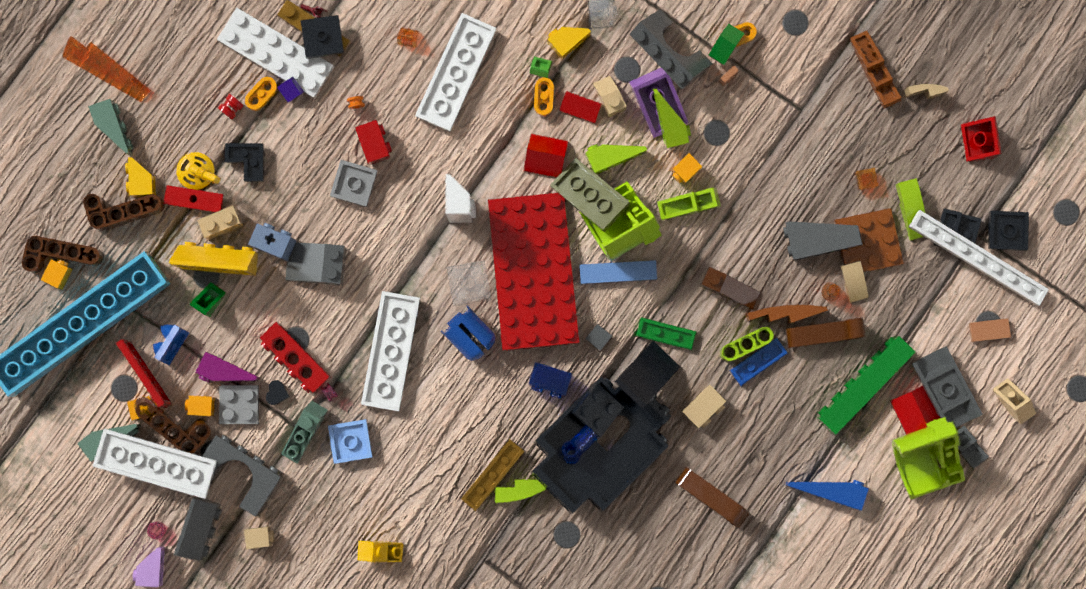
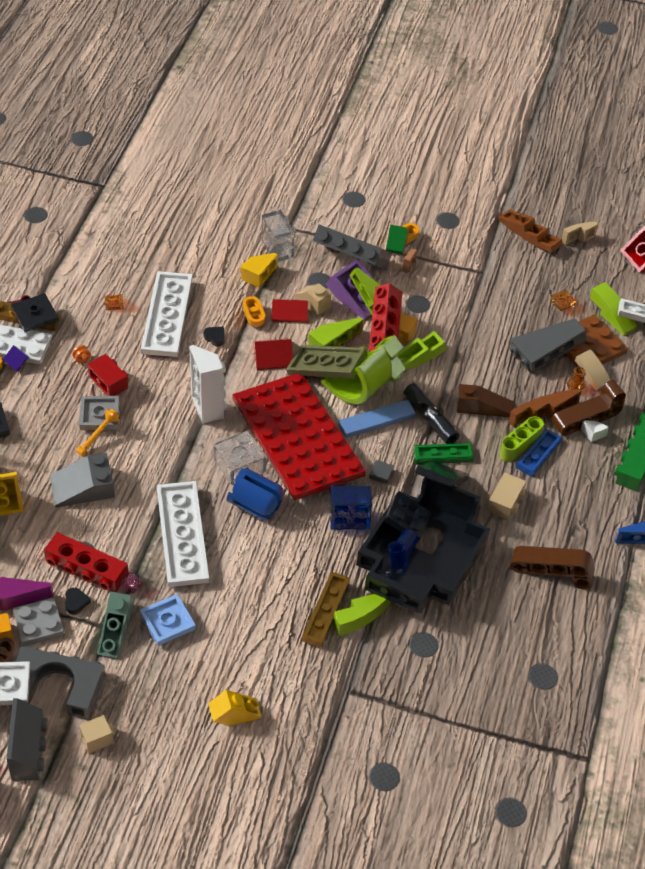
camera: 20 degrees left, 35 degrees down
(262, 239) = (35, 472): sand blue brick -> none
(360, 199) = (111, 416): none -> light orange piece
(495, 114) = (214, 335): none -> black tile
(540, 67) = (242, 291): bright green tile -> none
(665, 166) = (385, 314): none -> red brick
(669, 272) = (432, 415): none -> black piece
(823, 353) = (594, 430): none -> white slope

